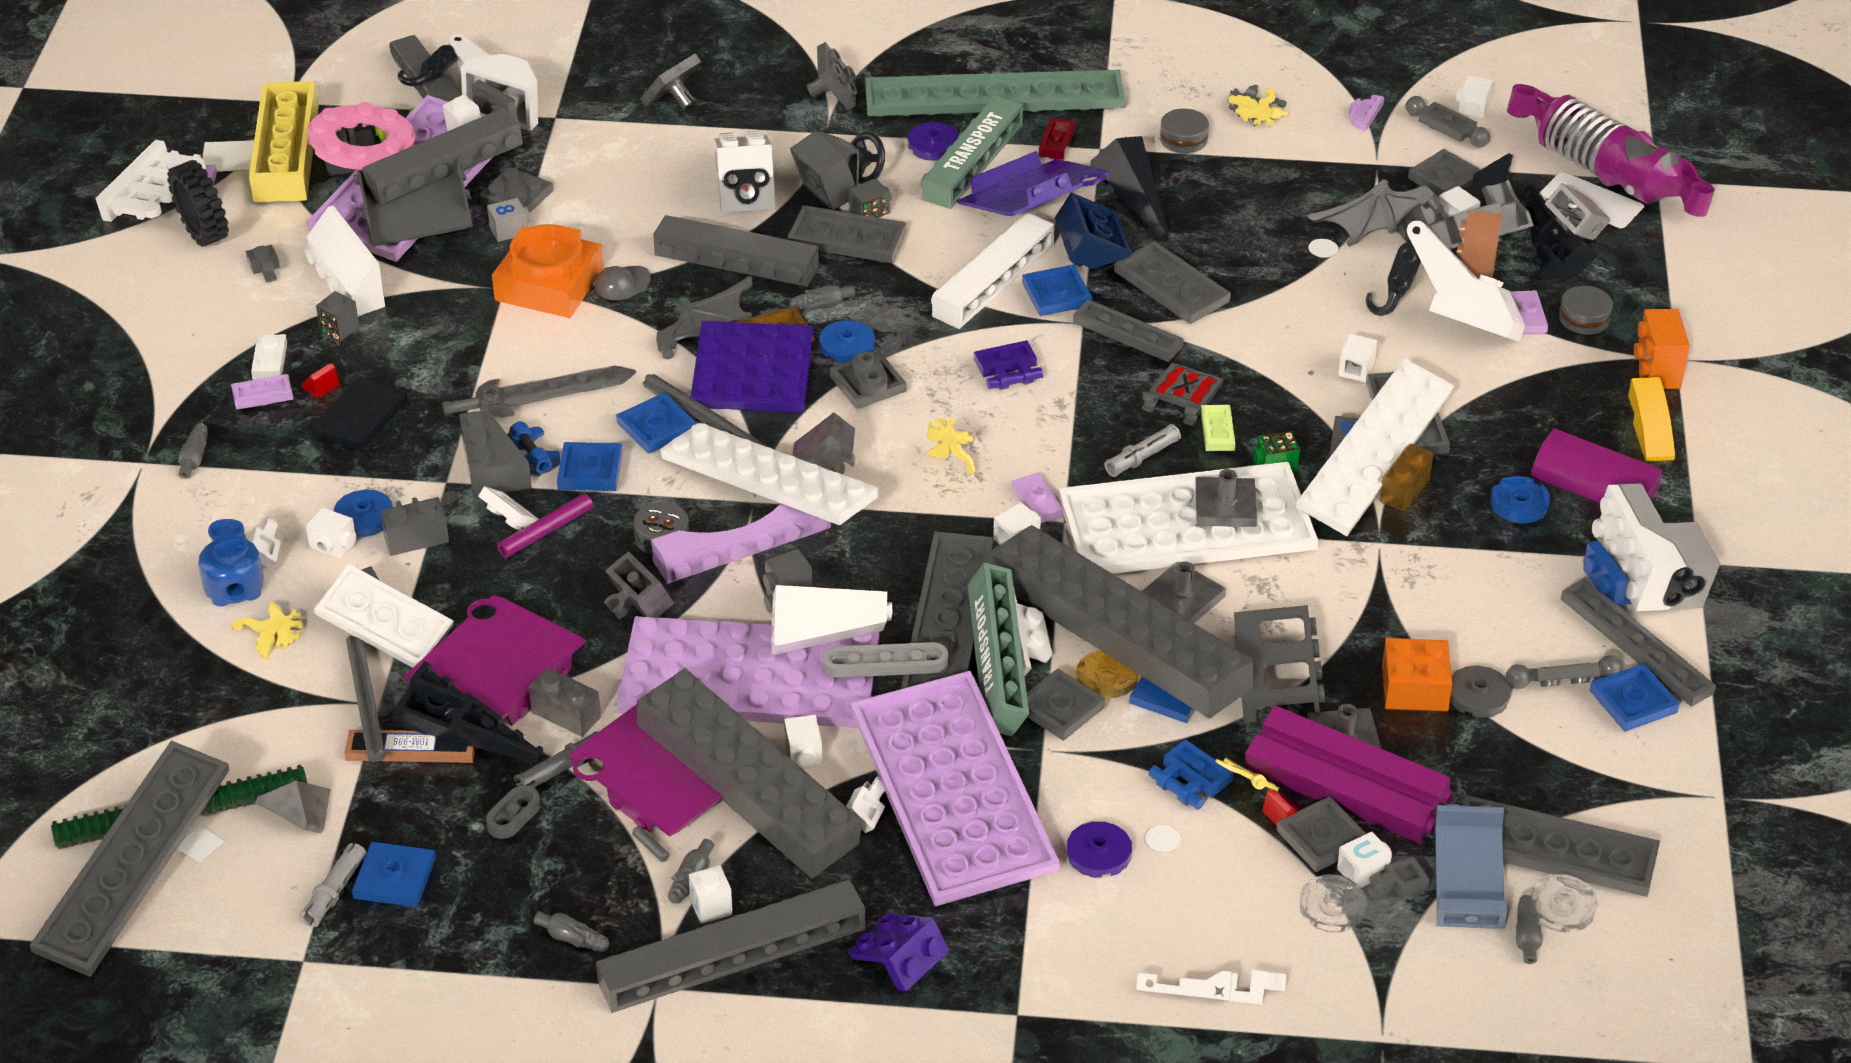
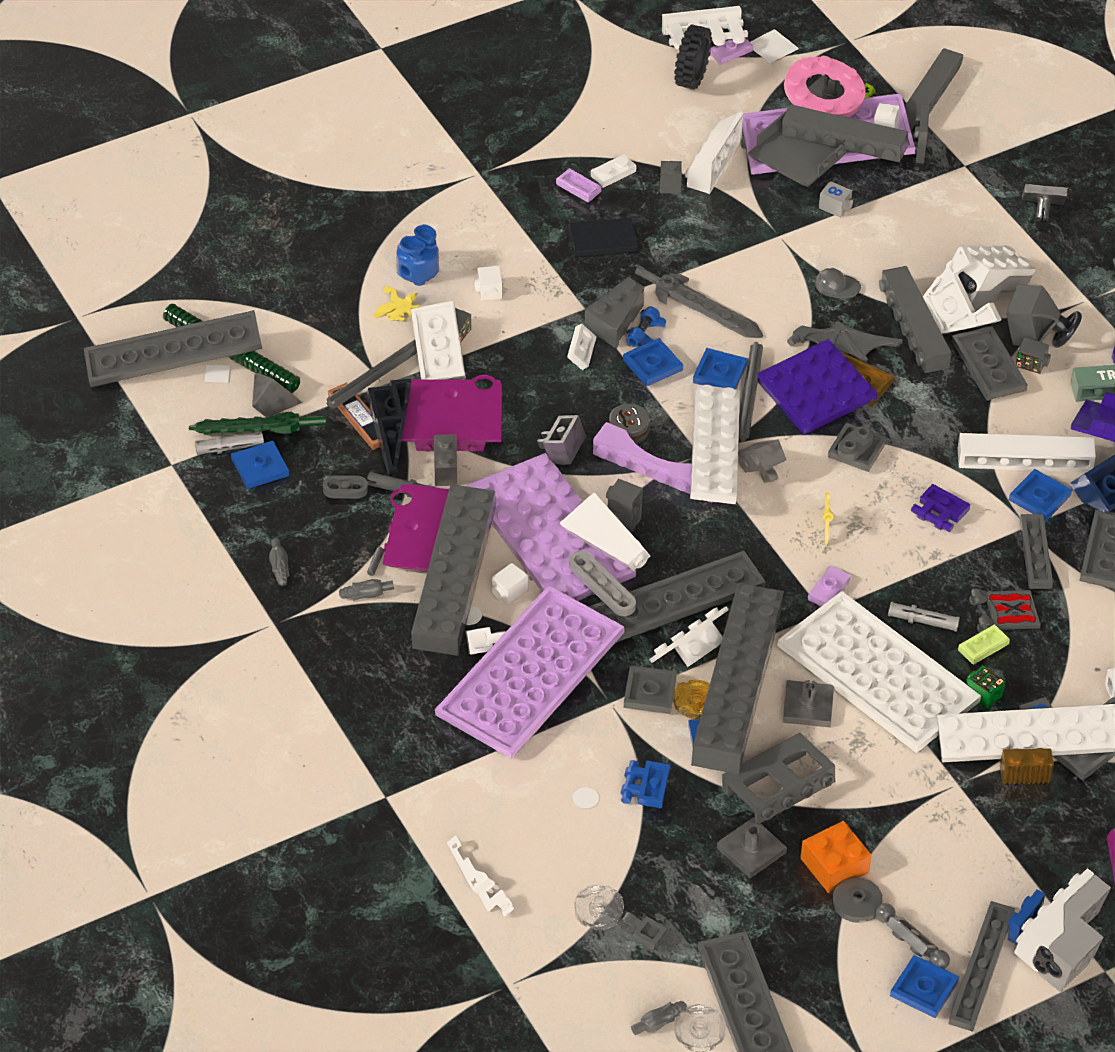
camera: 55 degrees right, 5 degrees up
(193, 450) = (502, 187): dark grey piece -> none
(263, 260) = (691, 117): dark grey plate -> none
(265, 541) = (454, 260): white plate -> none
(281, 146) = (767, 71): light yellow brick -> none
(321, 381) = (613, 205): red slope -> none
(344, 822) = (280, 423): none -> dark green bar
(365, 509) = (523, 288): blue plate -> none
(414, 525) = (527, 314): dark grey brick -> none
(500, 71) = (948, 109): white slope -> none
(516, 184) = (870, 189): dark grey plate -> none
(545, 526) = (585, 371): magenta piece -> none
(548, 269) = (803, 243): orange container -> none
(710, 894) = (352, 606): white brick -> none
(730, 945) = (325, 637): dark grey brick -> none
(755, 207) = (950, 302): none -> white wing
(822, 297) = (915, 384): dark grey piece -> none
(845, 340) = (887, 418): blue plate -> none
(905, 945) = (384, 715): dark purple bracket -> none
(998, 647) = (658, 630): sand green brick -> none
(1014, 521) = (791, 586): white brick -> none
(1099, 849) = (546, 769): dark purple plate -> none
(1225, 500) = (905, 680): flat silver tile -> none
(1257, 780) = (664, 813): light yellow piece -> none
(1278, 806) = (658, 845): red slope -> none
(1319, 832) = (651, 873): dark grey plate -> none
(1350, 771) = (709, 861): magenta brick -> none
(1363, 858) = (645, 902): white brick -> none
(1469, 866) = (680, 962): sand blue panel -> none
(1520, 500) = (1077, 835): blue plate -> none

